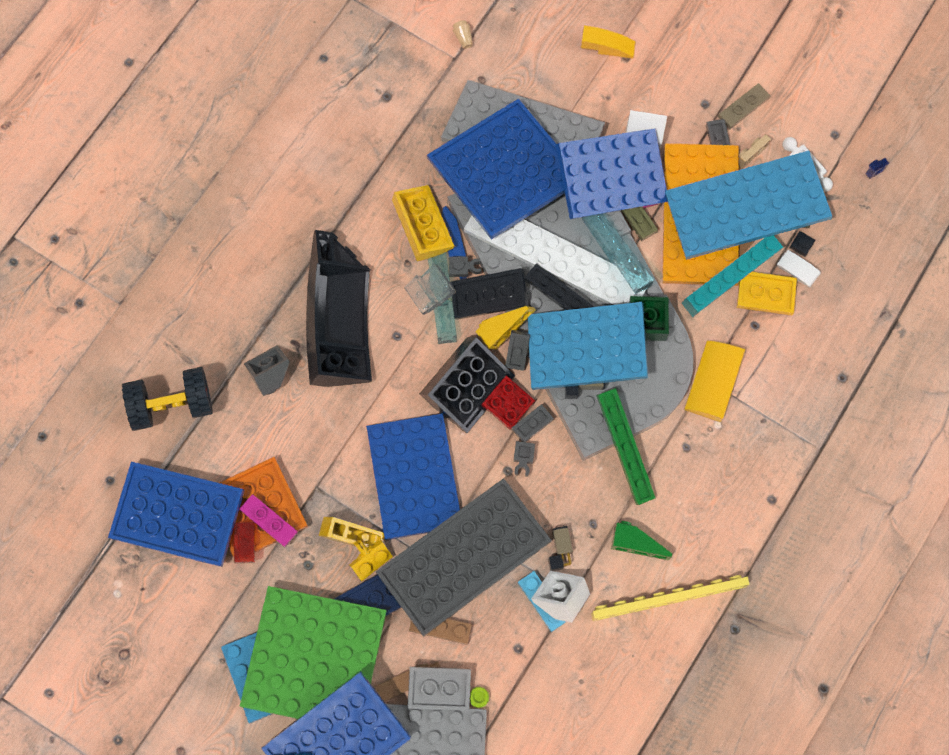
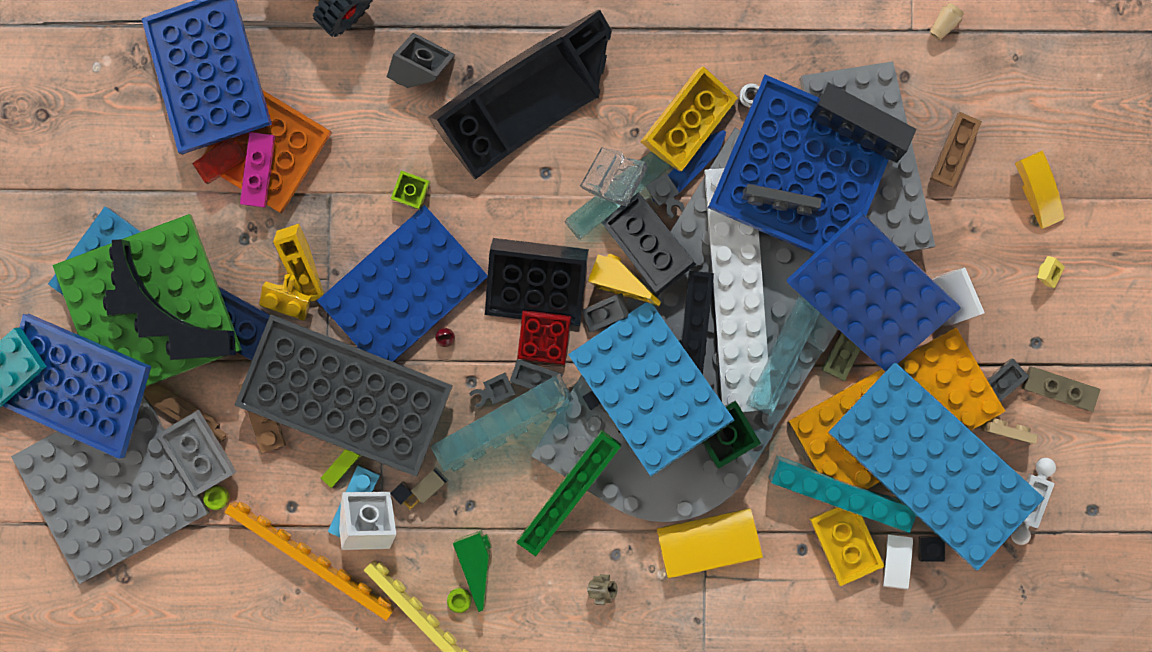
camera: 60 degrees right, 15 degrees up
(302, 658) = (152, 320): none -> black arch
(350, 428) = (410, 190): none -> lime piece
(429, 172) = (743, 94): none -> white plate
(470, 469) = (445, 342): none -> dark red hinge
(498, 113) = (862, 123): none -> black brick
(511, 594) = (340, 467): none -> lime piece
(516, 189) = (781, 199): none -> dark grey plate
(549, 77) = (955, 150): none -> medium nougat plate
(550, 462) = (501, 423): none -> clear light blue brick
(556, 658) = (302, 553): none -> light orange plate
(654, 570) = (459, 600): none -> lime tile
(664, 67) = (1050, 271): none -> light yellow plate
(705, 467) = (602, 589): none -> dark tan gear
(876, 167) = (1079, 581): clear blue plate -> none

